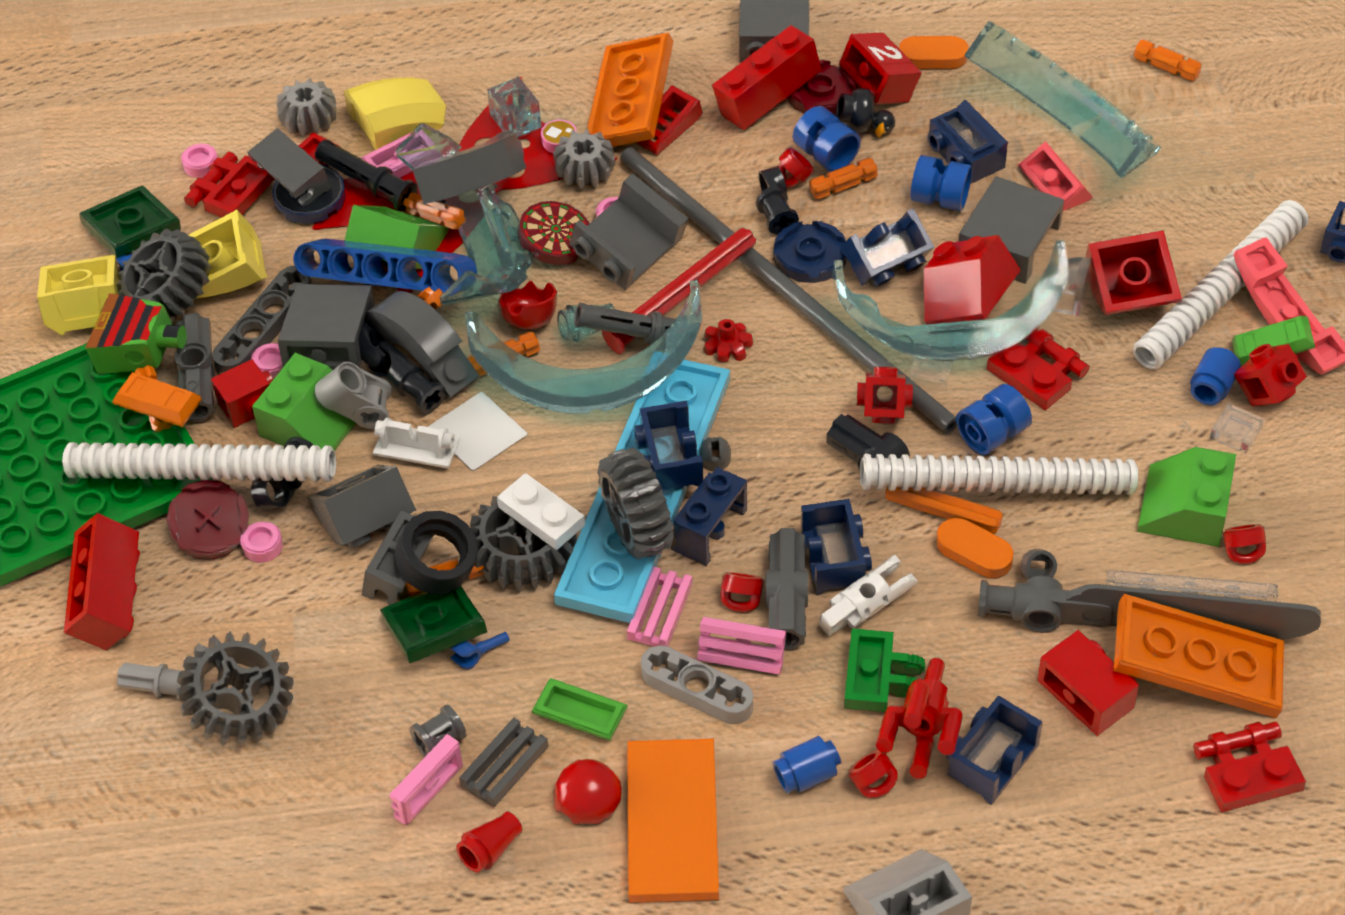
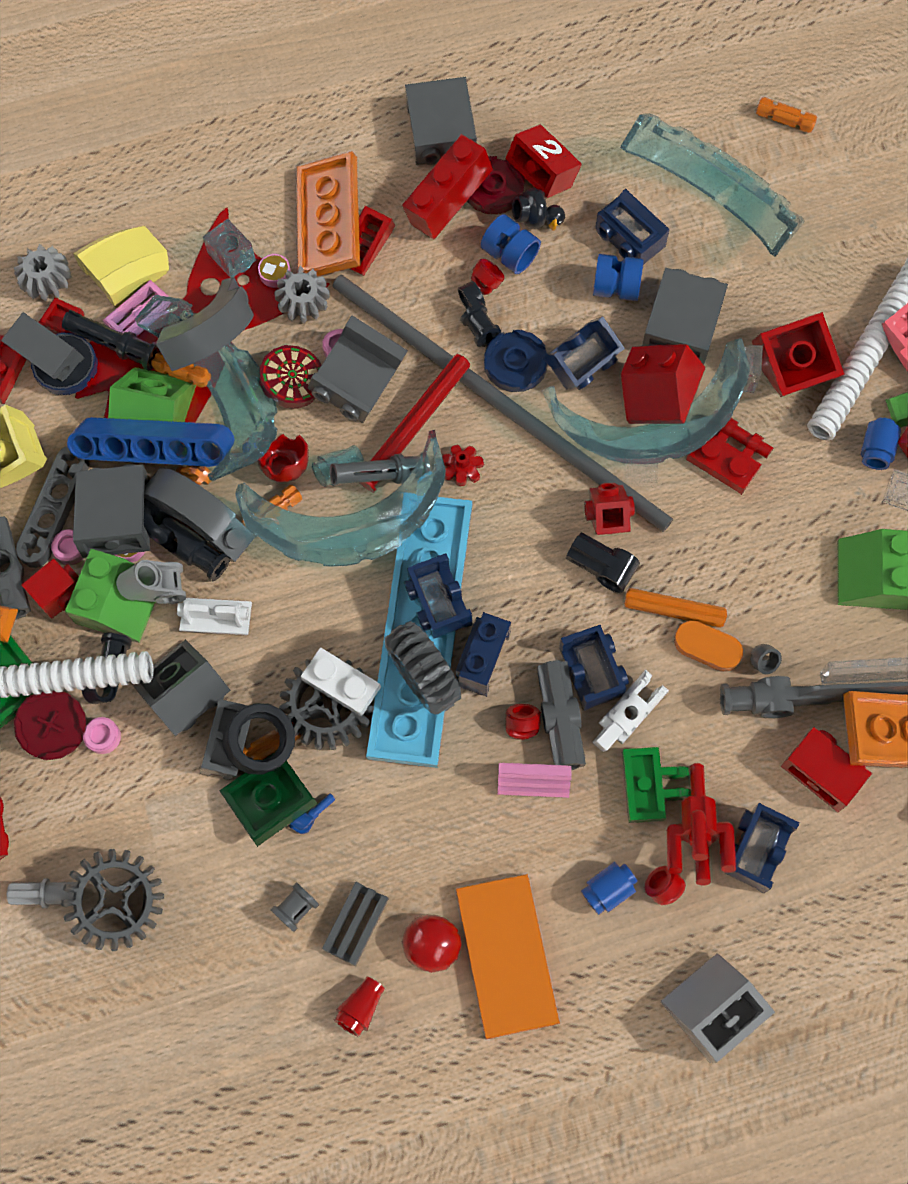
camera: 10 degrees left, 20 degrees up
(426, 780) = (295, 957): bright pink tile -> none
(482, 430) = (267, 586): white sticker -> none
(579, 709) = (409, 862): bright green tile -> none
(668, 581) = (460, 718): bright pink tile -> none
(707, 700) = (530, 822): light grey beam -> none
(724, 458) = (466, 586): dark grey hinge -> none
(843, 178) = (530, 280): orange axle -> none
(935, 51) = (585, 132): orange tile -> none
(994, 419) = (708, 515): blue wheel -> none
(999, 474) = (719, 576): white piece -> none
(1054, 177) = (710, 253): coral slope -> none

